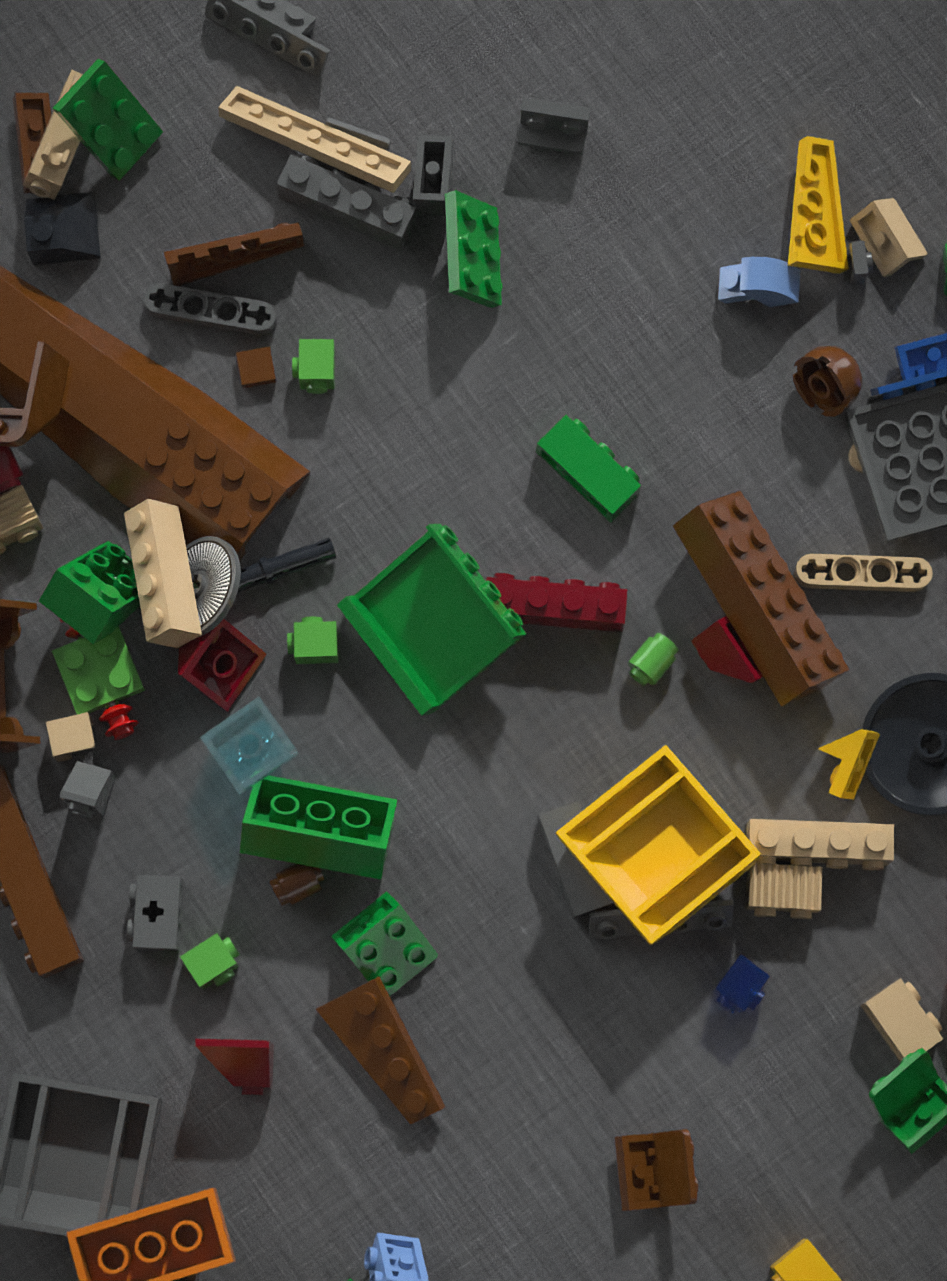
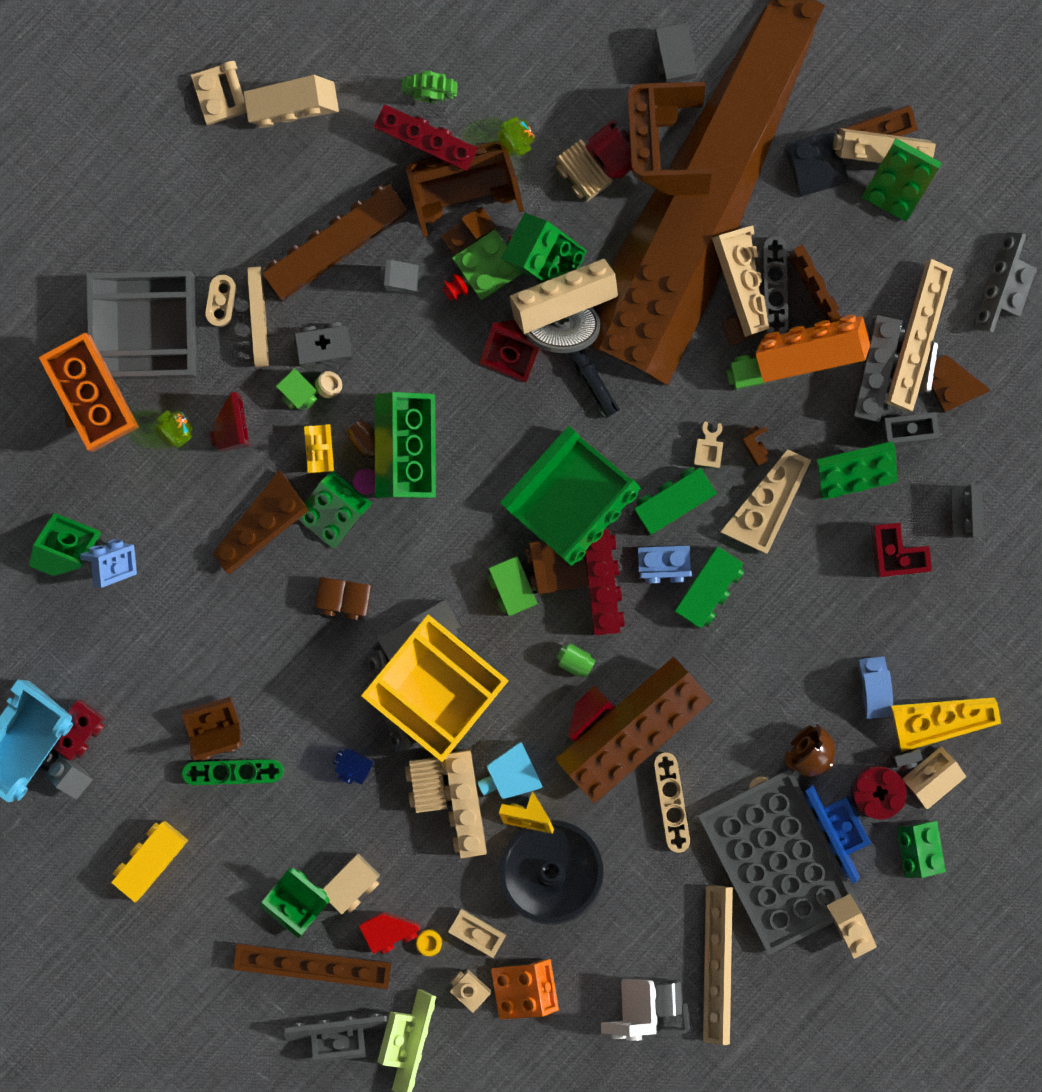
camera: 85 degrees right, 10 degrees up
(46, 688) = (468, 231): none -> reddish brown slope
(64, 1044) = (220, 301): none -> tan plate
(70, 735) = (436, 256): tan panel -> none
(98, 996) = (258, 316): none -> tan beam
(193, 344) = (739, 268): none -> tan wing
(212, 917) = (328, 384): none -> tan tile
(227, 1143) = (174, 429): none -> clear neon green head
(249, 745) = (452, 385): clear light blue slope -> none
(297, 946) = (319, 448): none -> yellow hips
(302, 266) = (813, 348): none -> orange brick
(314, 641) = (540, 414): bright green brick -> none
(355, 893) = (364, 481): none -> magenta tile
(387, 112) = (954, 384): none -> reddish brown wing
(406, 434) = (709, 451): none -> tan plate
(417, 376) = (755, 450): none -> reddish brown bracket
(464, 490) = (674, 500): none -> green brick
(496, 375) = (765, 509): none -> tan wing
(507, 954) = (344, 597): none -> reddish brown brick
(526, 665) = (552, 571): none -> reddish brown bracket
(537, 723) = (512, 586): none -> bright green brick
(544, 519) = (664, 562): none -> medium blue bracket
(592, 229) = (890, 555): none -> dark red brick
(724, 1156) = (233, 775): none -> green beam
(789, 773) = (511, 774): none -> medium azure torso
(879, 309) = (892, 798): none -> dark red brick

